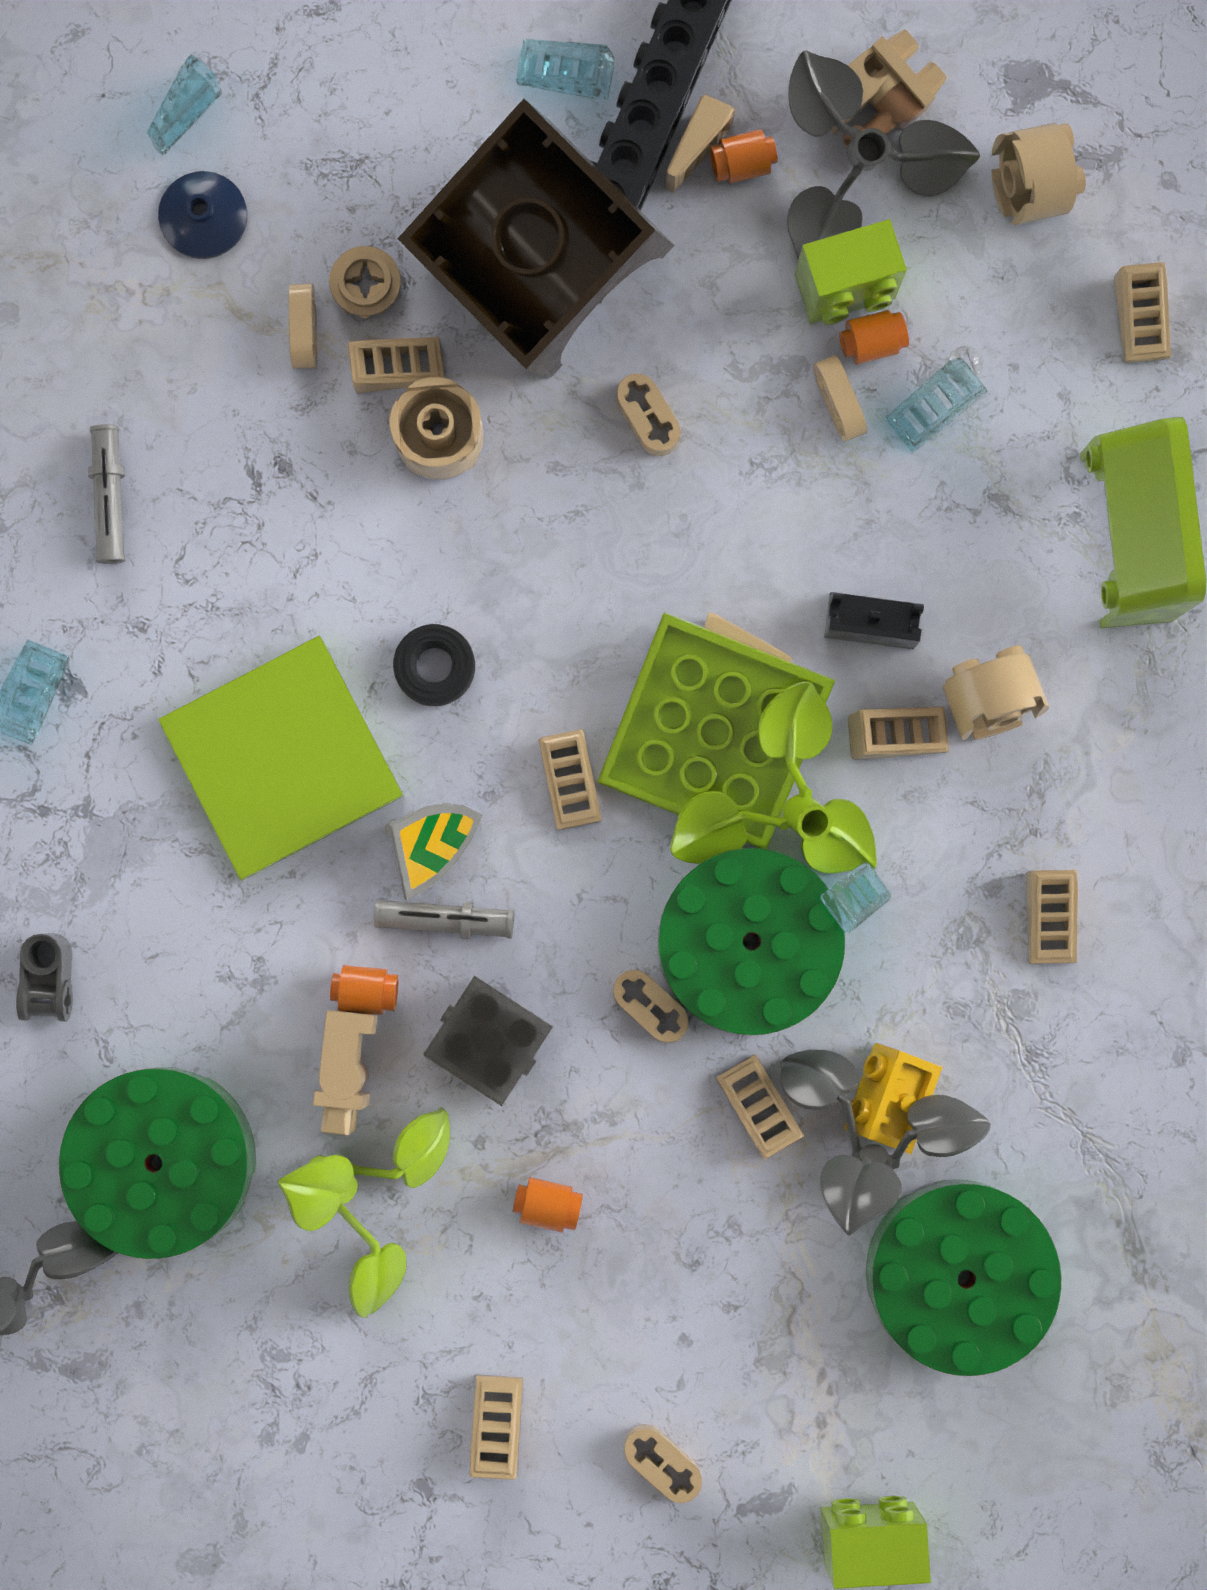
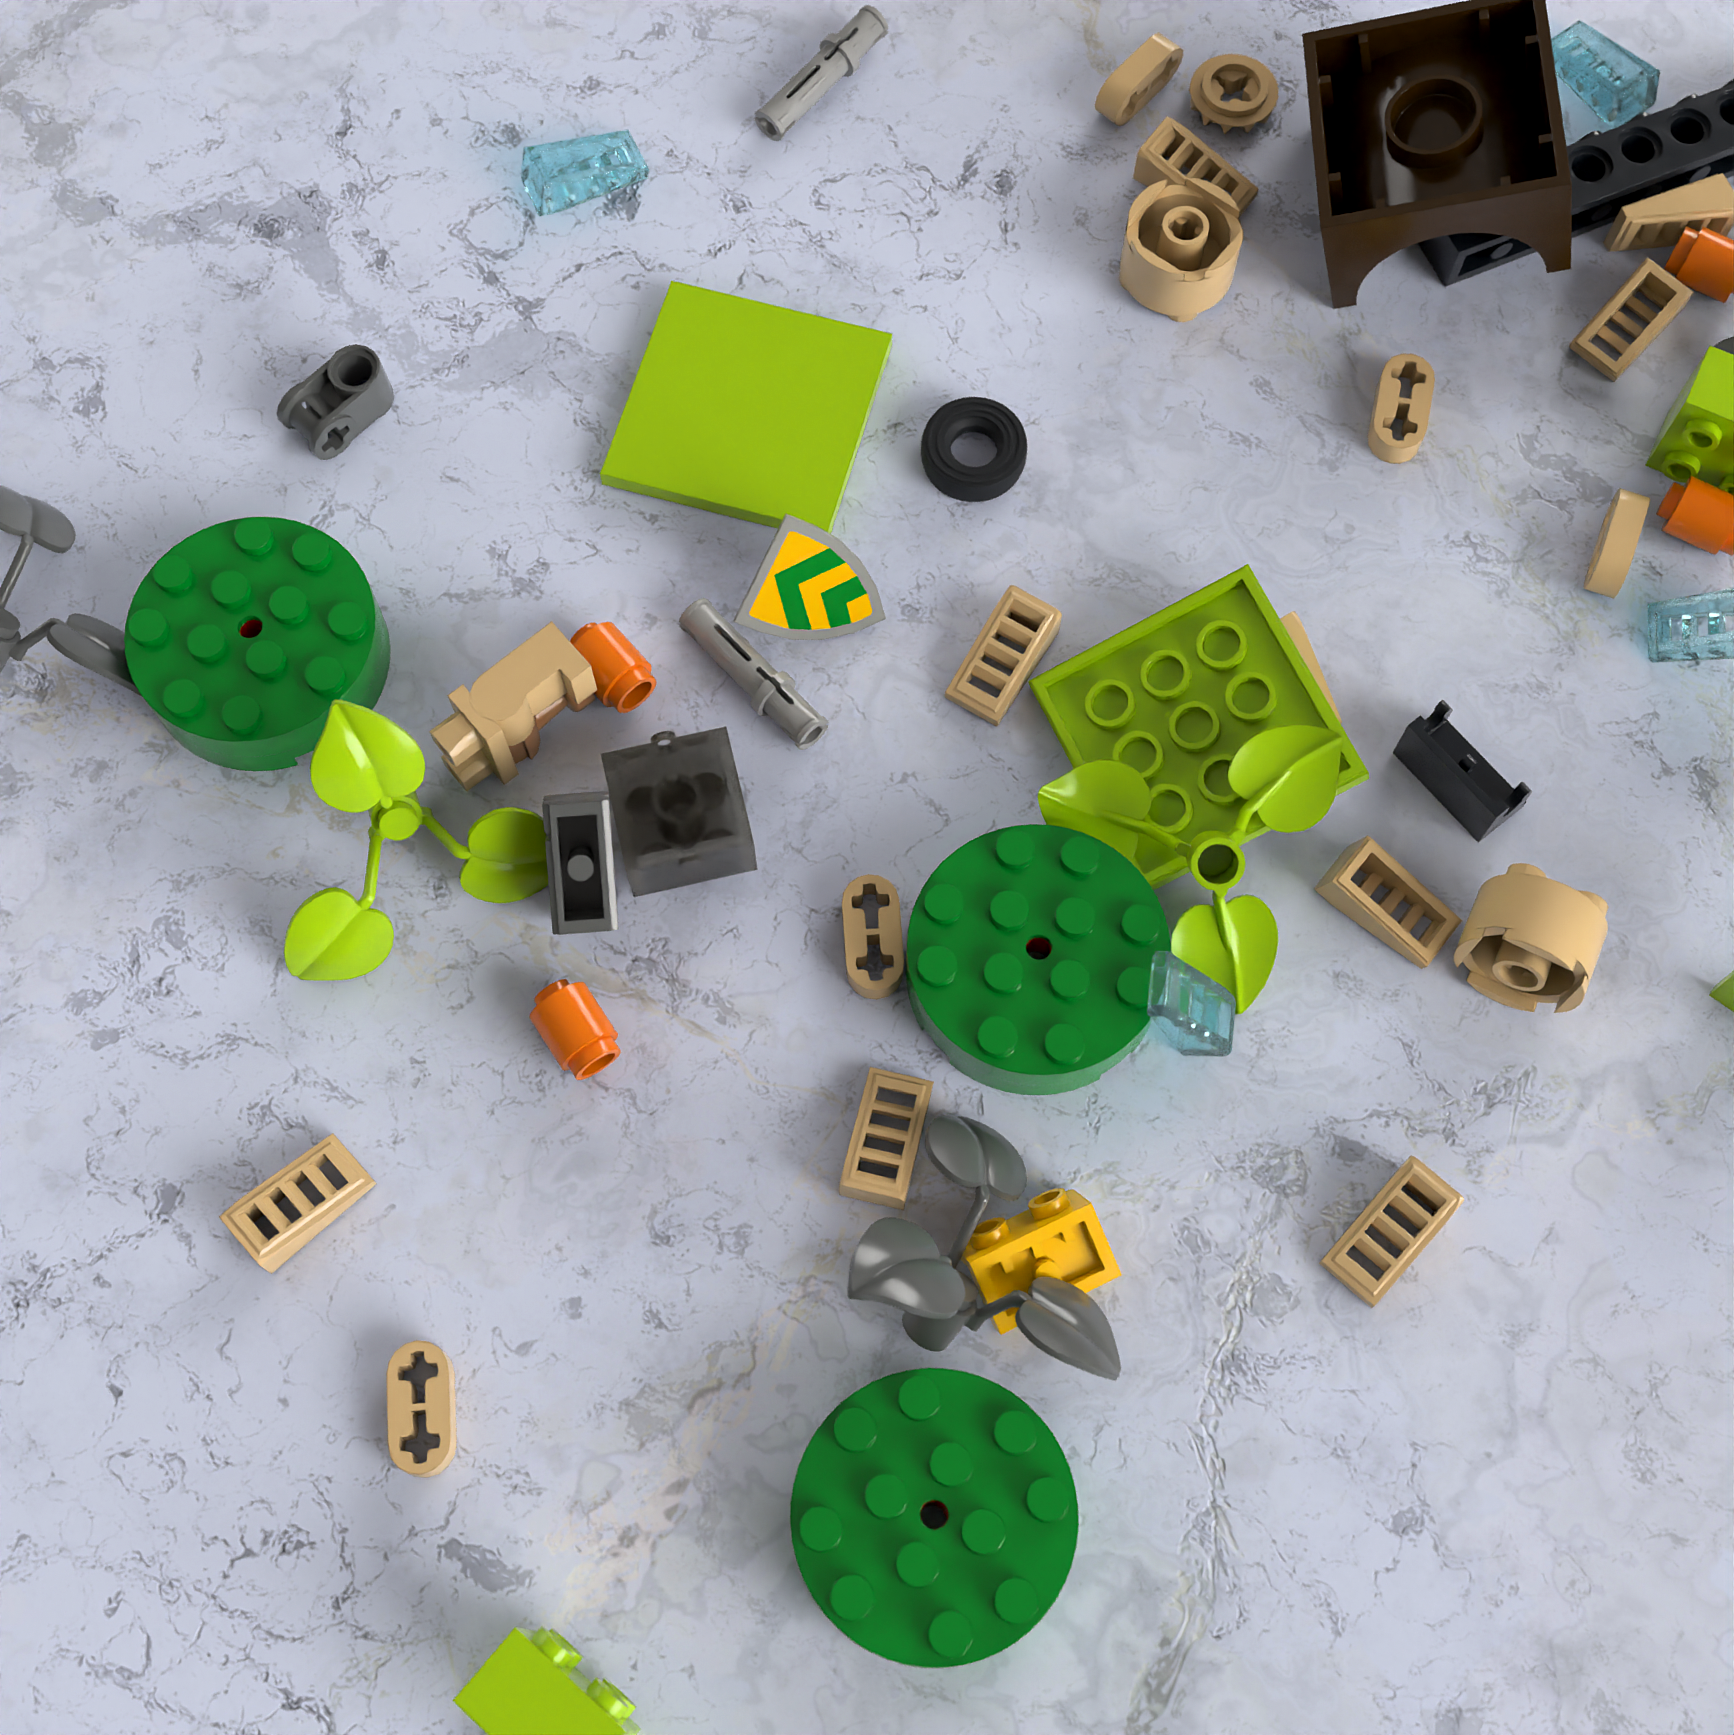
camera: 45 degrees right, 15 degrees down
(468, 1120) = (580, 862): none -> dark grey brick
(727, 199) = (1655, 285): none -> tan slope

